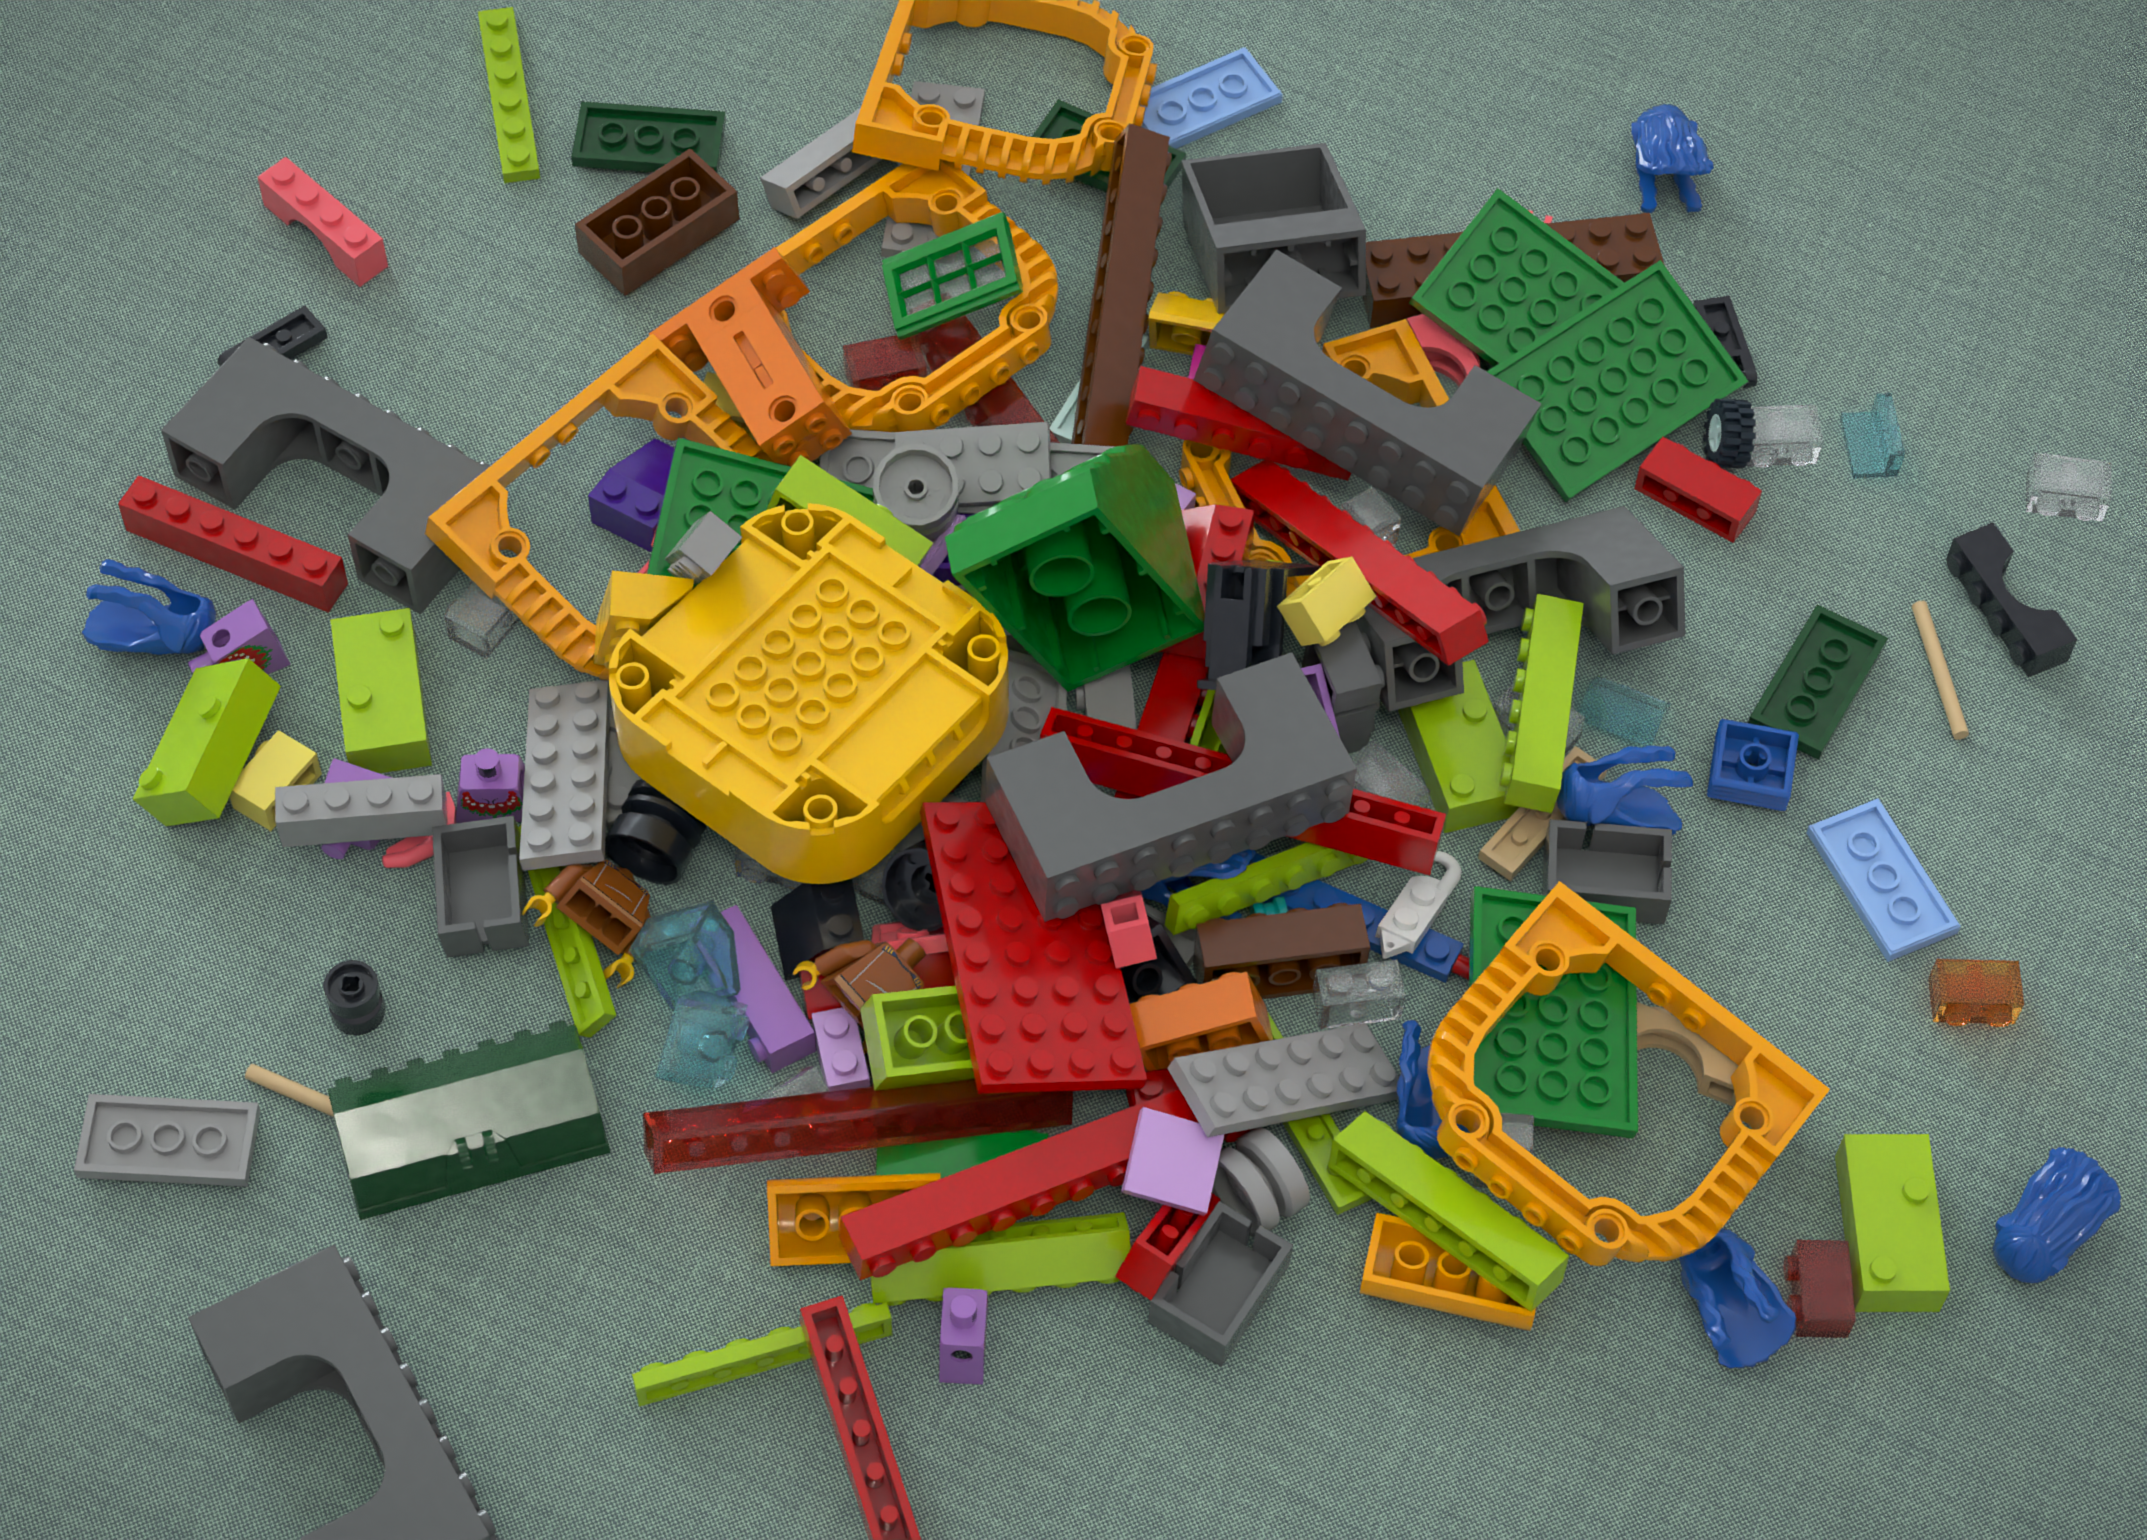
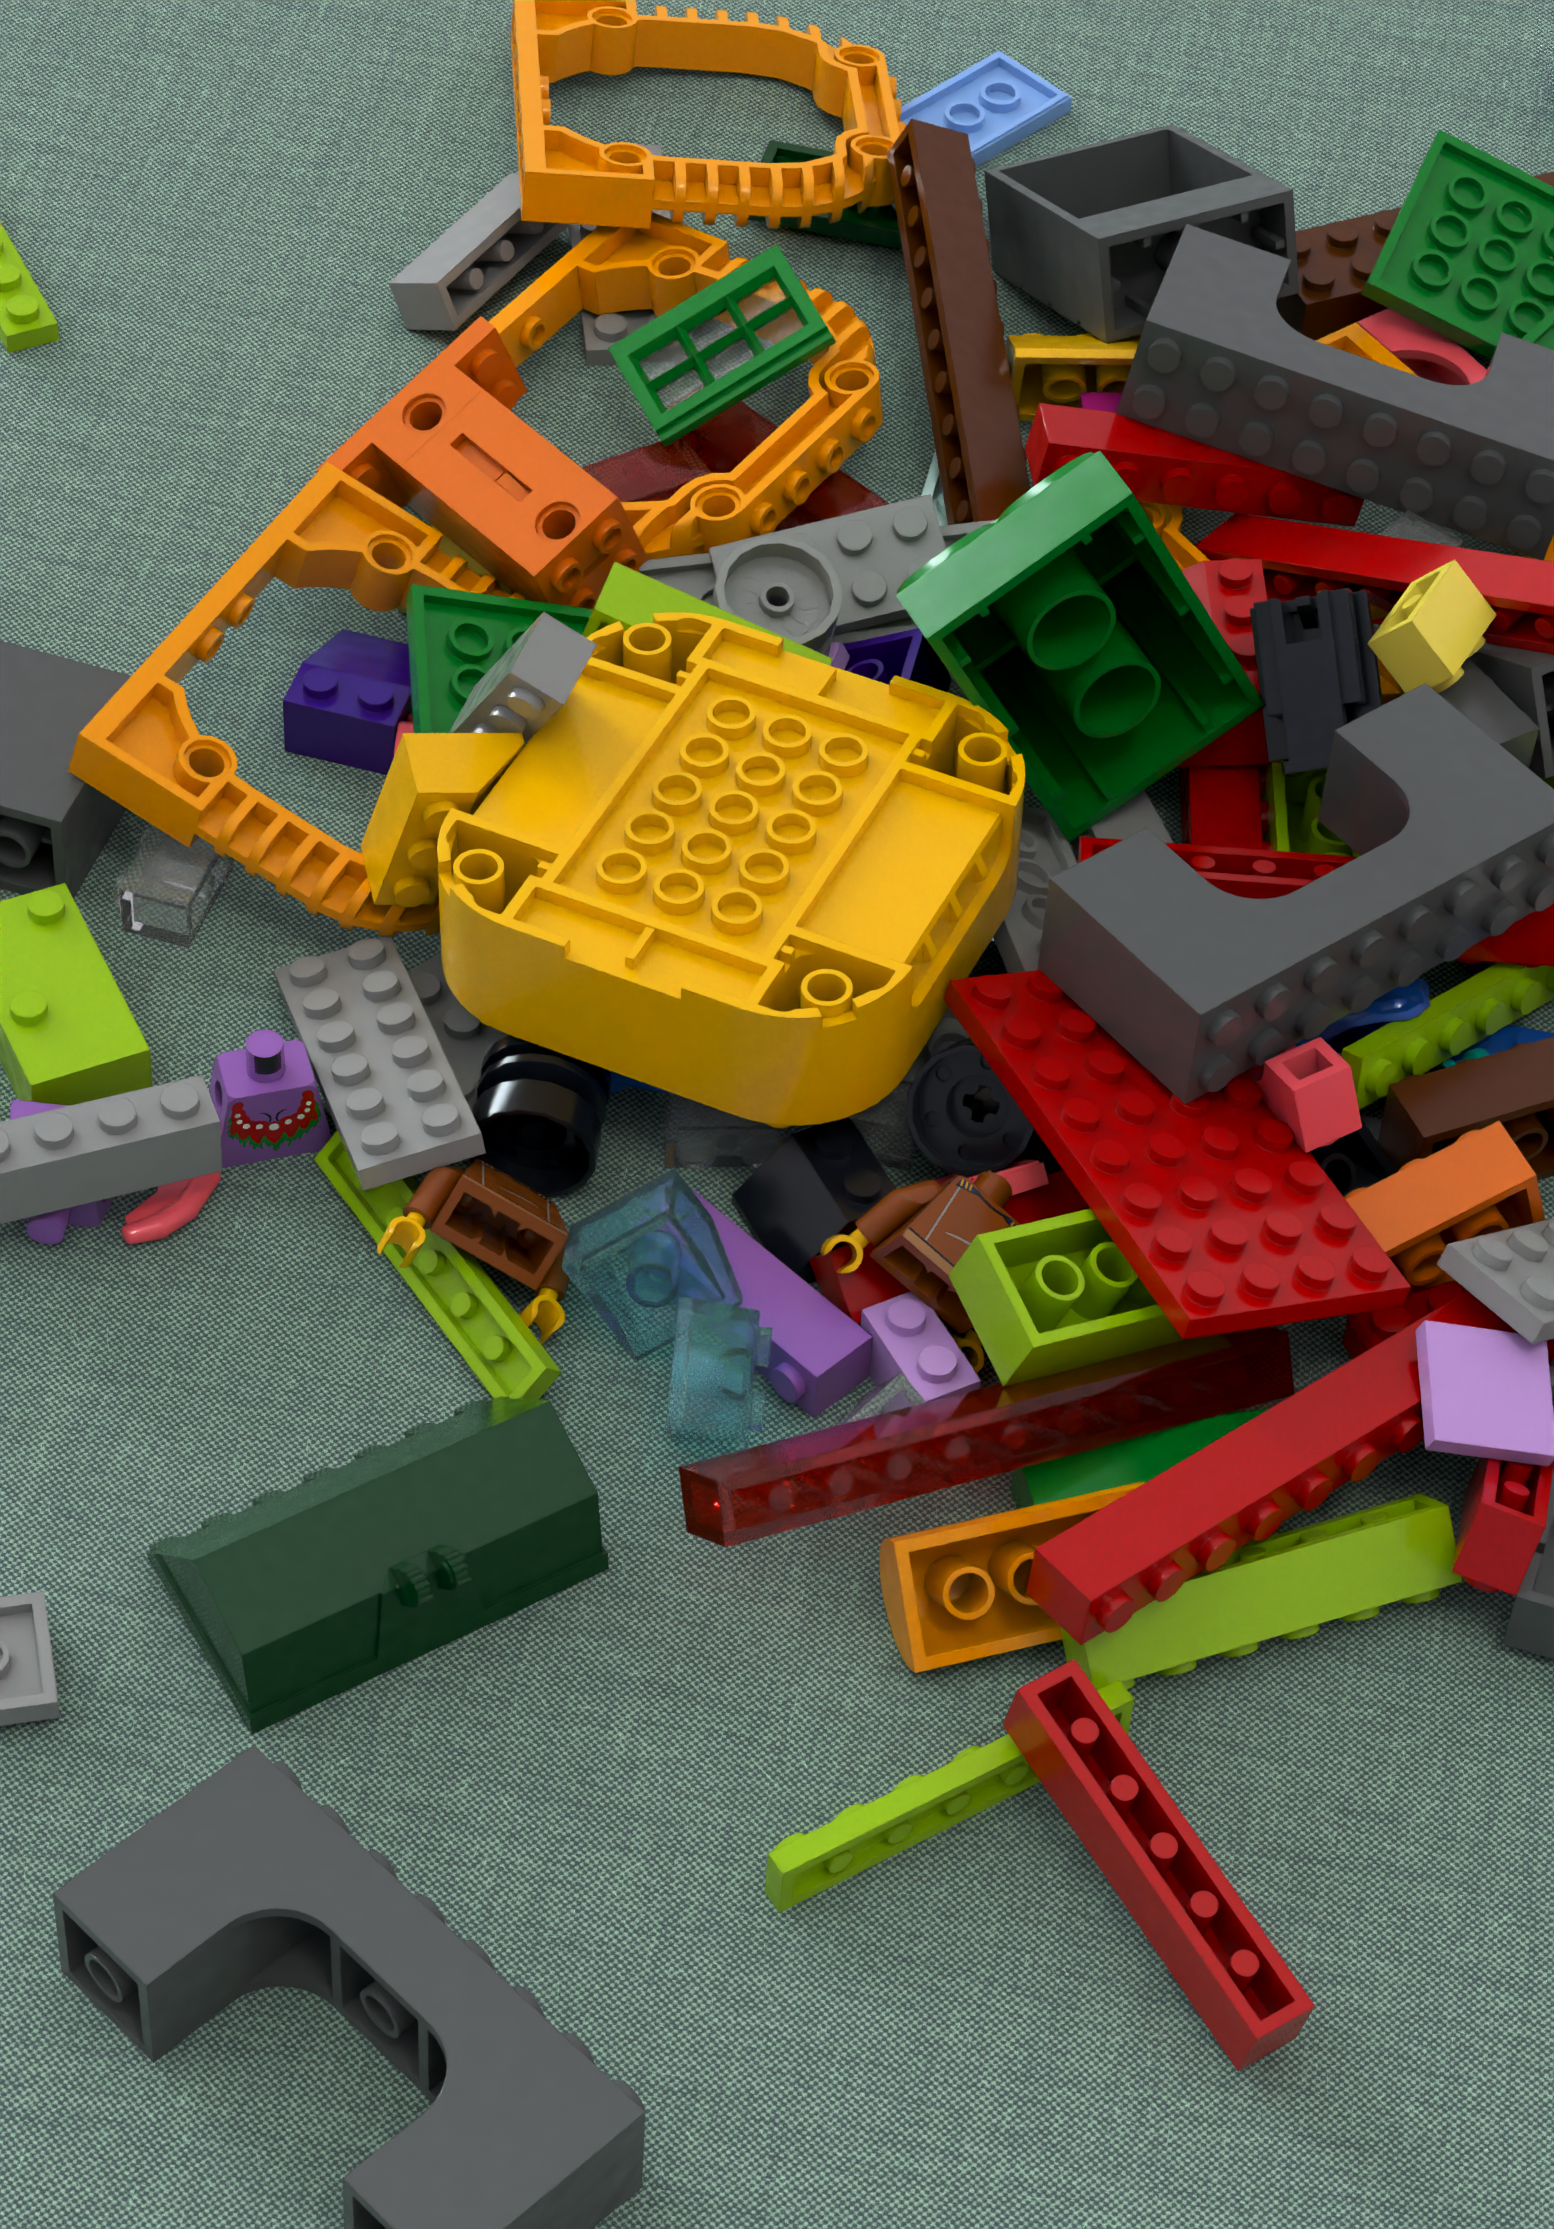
camera: 15 degrees left, 10 degrees down
(289, 1088) = (85, 1570): tan bar -> none
(354, 997) = (149, 1418): black wheel -> none
(479, 886) = (285, 1234): dark grey piece -> none
(644, 136) = (205, 266): dark green plate -> none
(657, 222) = (257, 357): reddish brown brick -> none
(963, 1329) = (1242, 1681): medium lavender torso -> none

